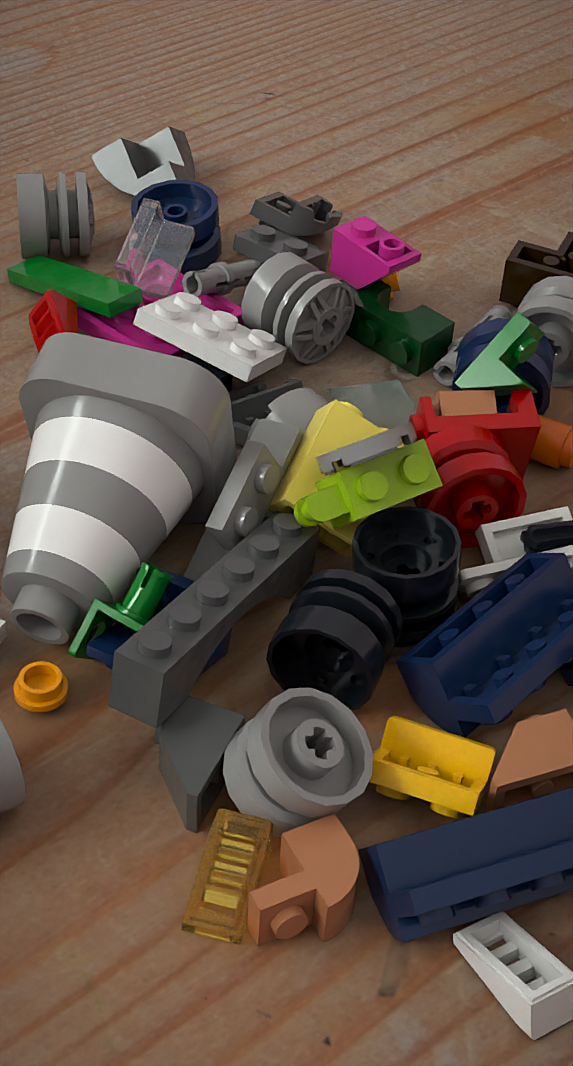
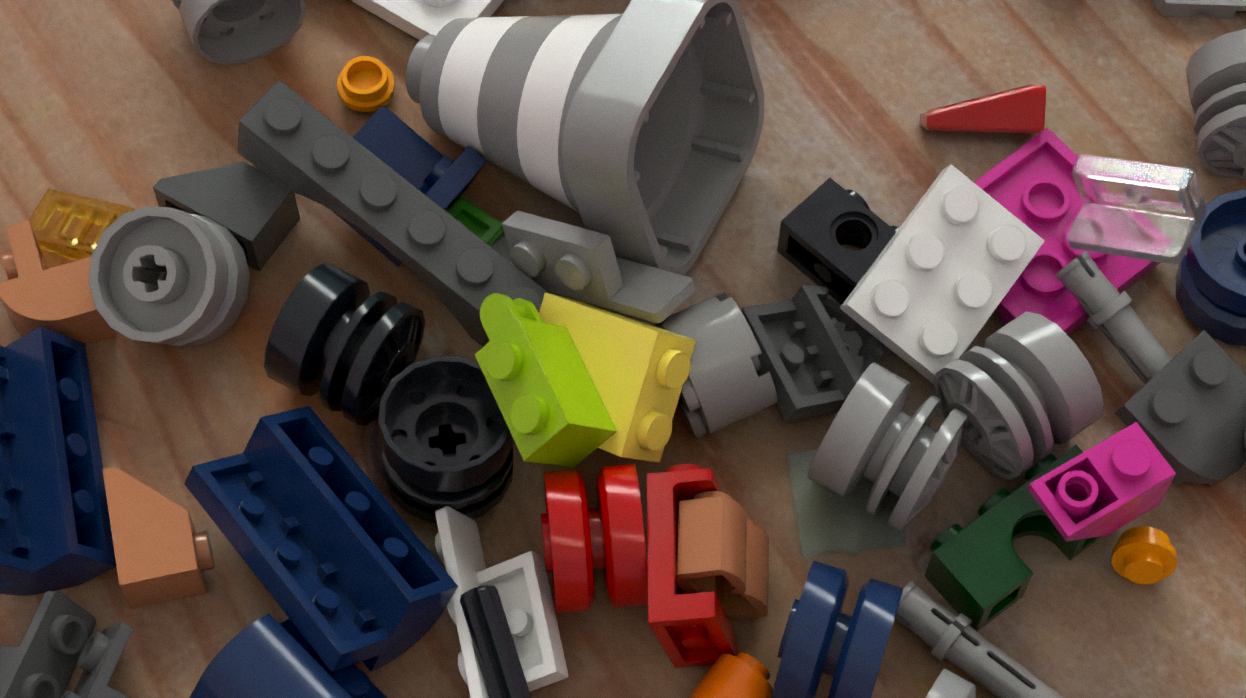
camera: 100 degrees right, 20 degrees up
(85, 287) = (1099, 128): green tile -> none
(133, 612) = (413, 141): green bracket -> none
(354, 354) = (887, 446): none -> light grey wheel
(367, 448) = (559, 353): light grey tile -> none
(432, 767) = (163, 423): yellow bracket -> none
(496, 363) = (753, 586): green slope -> none

